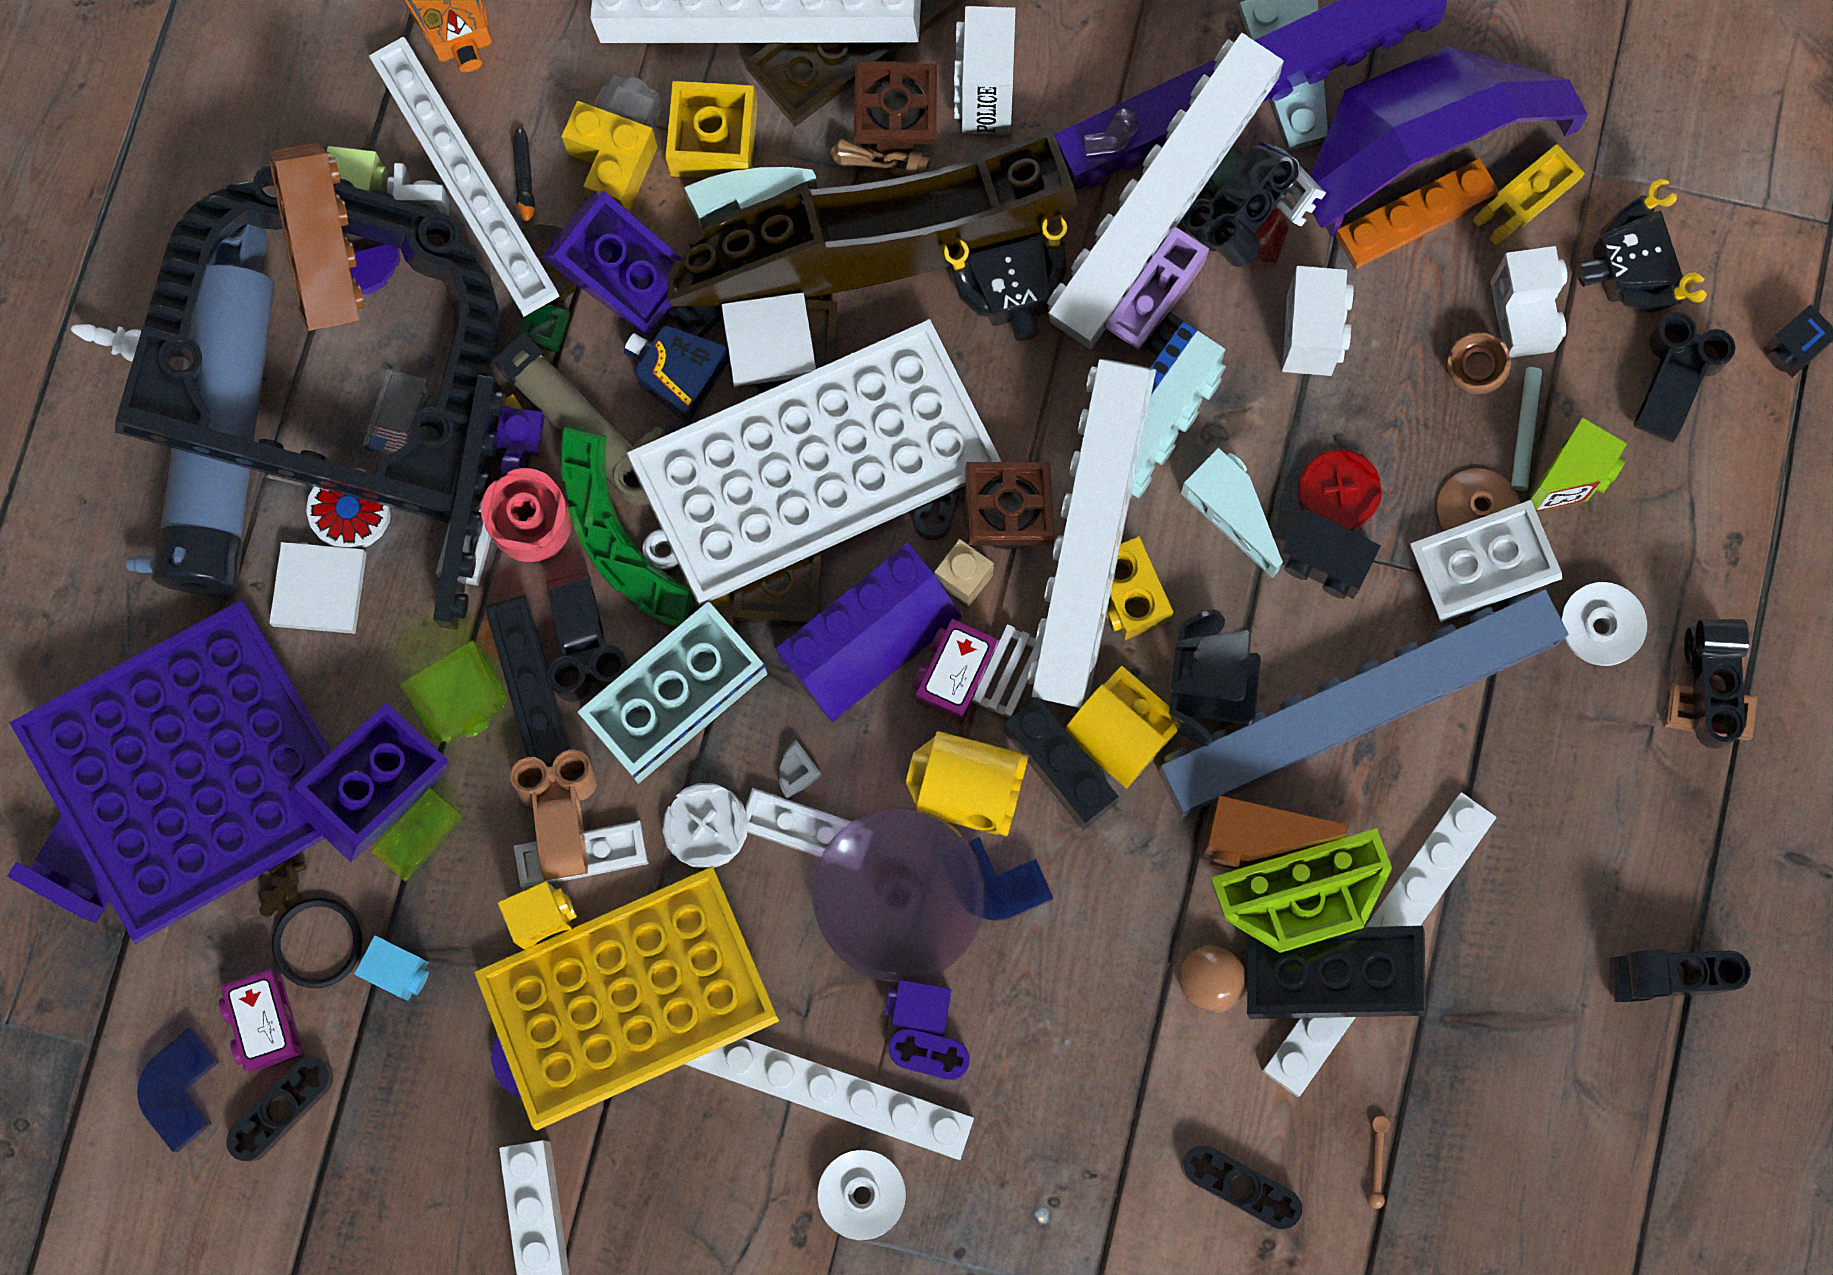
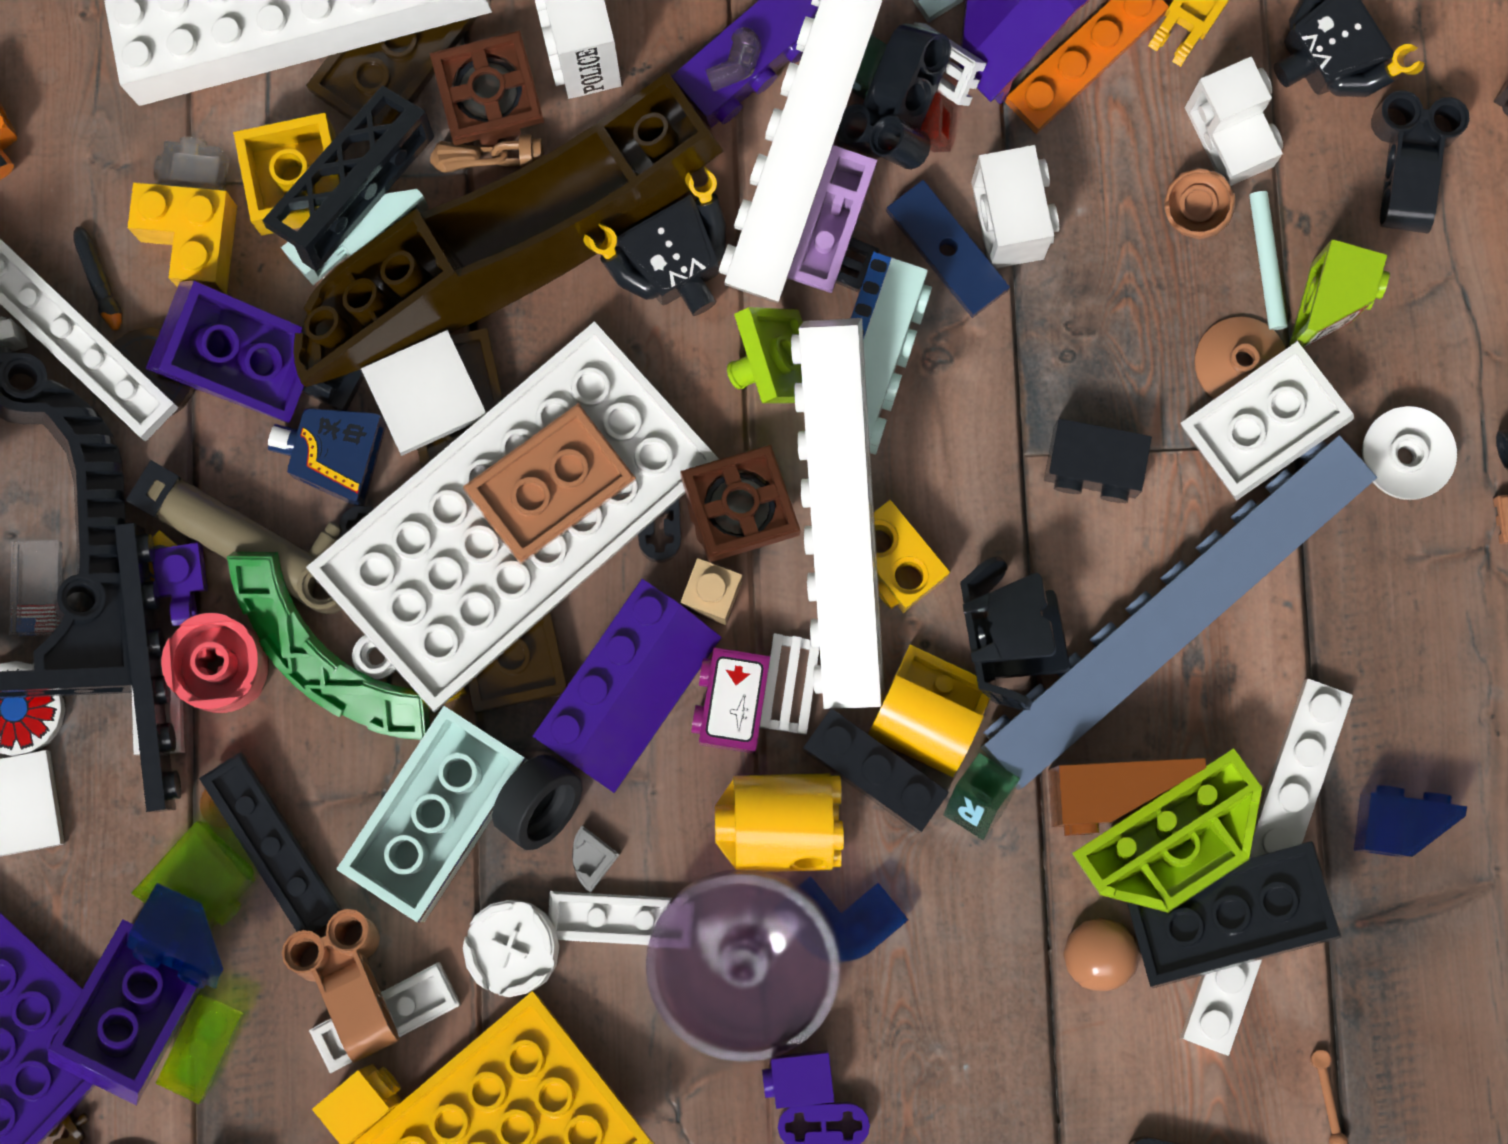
camera: 20 degrees left, 5 degrees up
(428, 727) = (177, 935): none -> clear blue slope
(546, 326) = (173, 444): dark green tile -> none
(579, 637) = (313, 779): black piece -> none
(752, 693) = (537, 802): none -> black tyre
(768, 147) = (360, 188): none -> black fence
(852, 442) = (549, 483): none -> nougat tile
(1068, 387) = (769, 360): none -> lime tile
(1146, 809) = (981, 796): none -> clear green brick
(1229, 501) = (977, 432): light aqua slope -> none
(1240, 322) = (928, 228): none -> dark blue tile
(1341, 488) = (1088, 382): red tile -> none
(1507, 939) = (1402, 825): none -> clear blue slope

